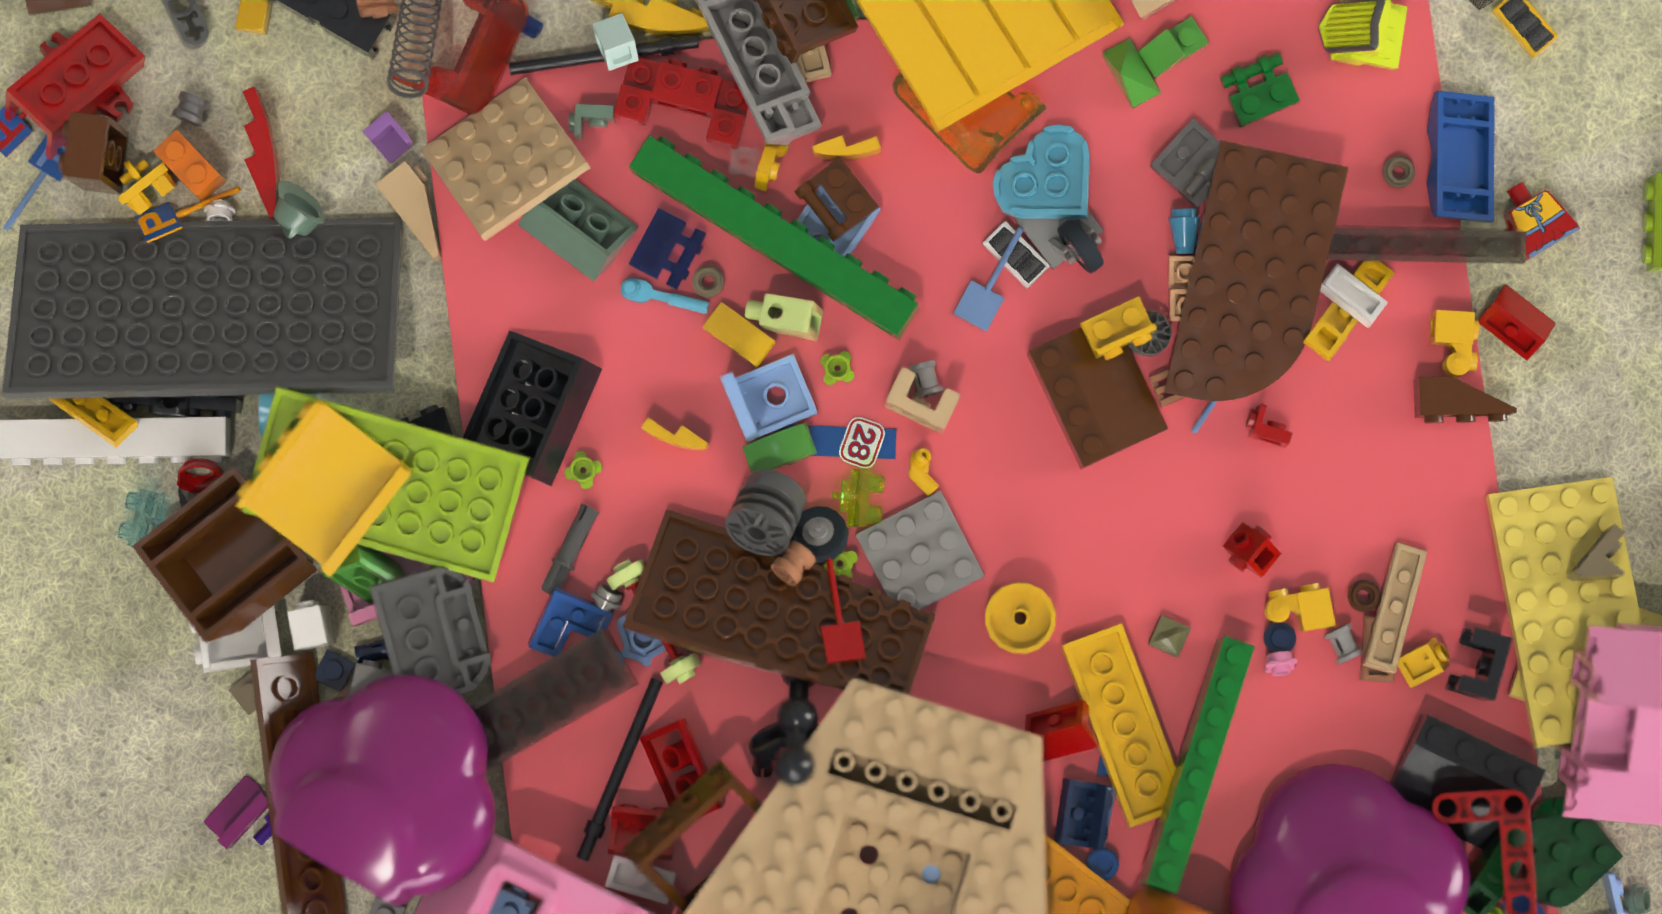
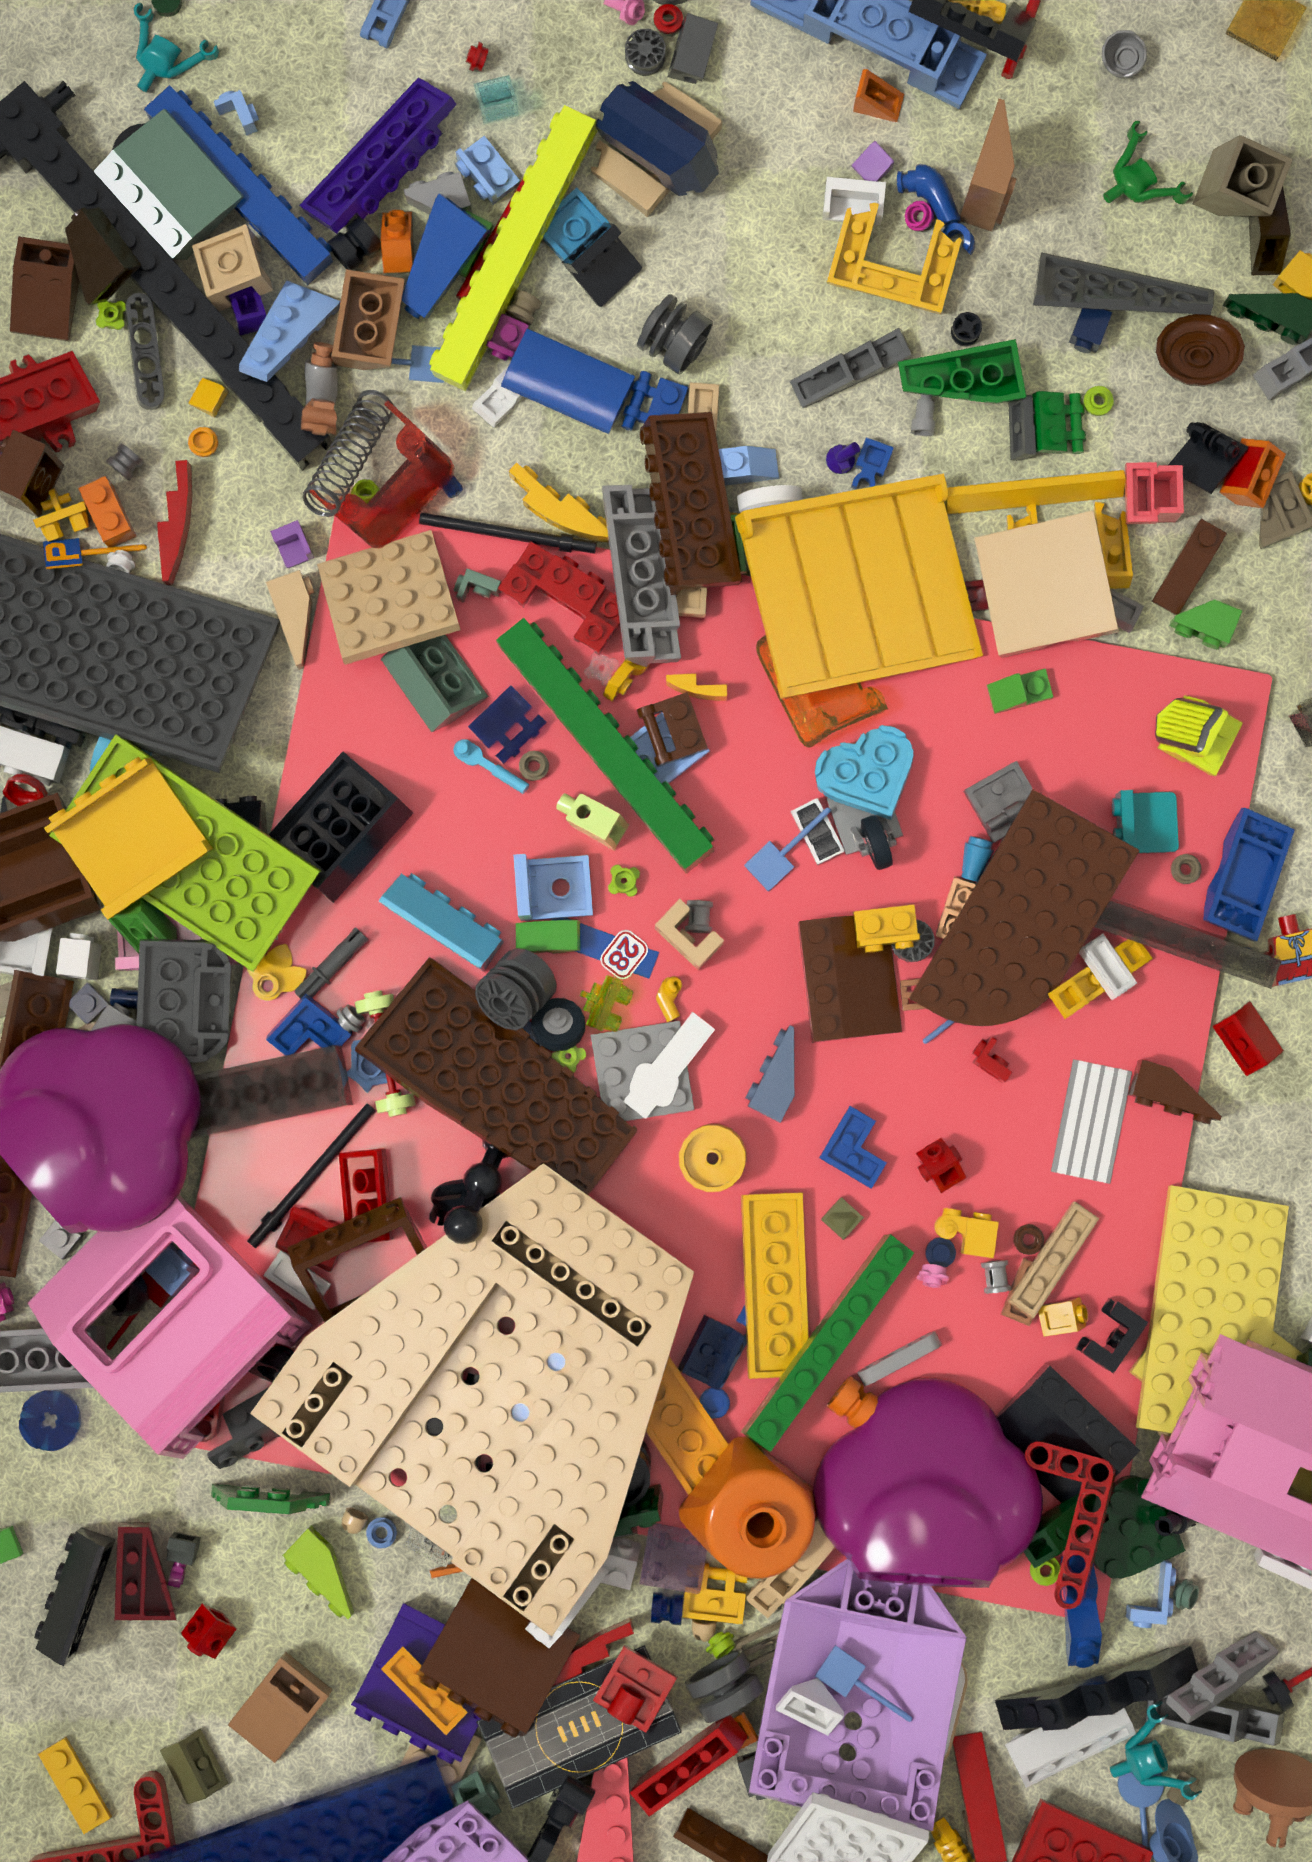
camera: 20 degrees right, 0 degrees up
(263, 63) = (203, 442): none -> light orange plate
(296, 210) = (188, 582): sand green piece -> none
(444, 55) = (363, 487): none -> lime plate
(516, 571) = (277, 968): none -> yellow plate
(592, 468) = (358, 897): lime plate -> none
(615, 41) = (521, 524): light aqua brick -> none
(667, 469) = (441, 921): none -> medium azure slope
(683, 438) = (464, 898): yellow slope -> none
(739, 334) = (545, 822): yellow slope -> none
(791, 566) = (523, 1043): nougat wheel -> none
(843, 640) = (547, 1126): red piece -> none
(940, 558) = (658, 1081): none -> white sticker
(1060, 523) = (776, 1087): none -> sand blue slope
(1062, 729) = (716, 1270): red panel -> none
(1131, 73) = (974, 702): bright green slope -> none
(1151, 568) = (845, 1149): none -> blue plate
(1242, 817) = (853, 1402): none -> orange wheel
(1263, 99) = (1086, 763): green plate -> none
(1273, 757) = (899, 1358): none -> light grey beam
(1343, 135) = (1147, 820): none -> teal bracket
(1387, 456) = (1091, 1121): none -> sticker
(1457, 332) = (1191, 1030): yellow brick -> none
(1595, 563) = (1245, 1279): dark tan slope -> none
(1603, 832) = (1173, 1523): none -> black pin

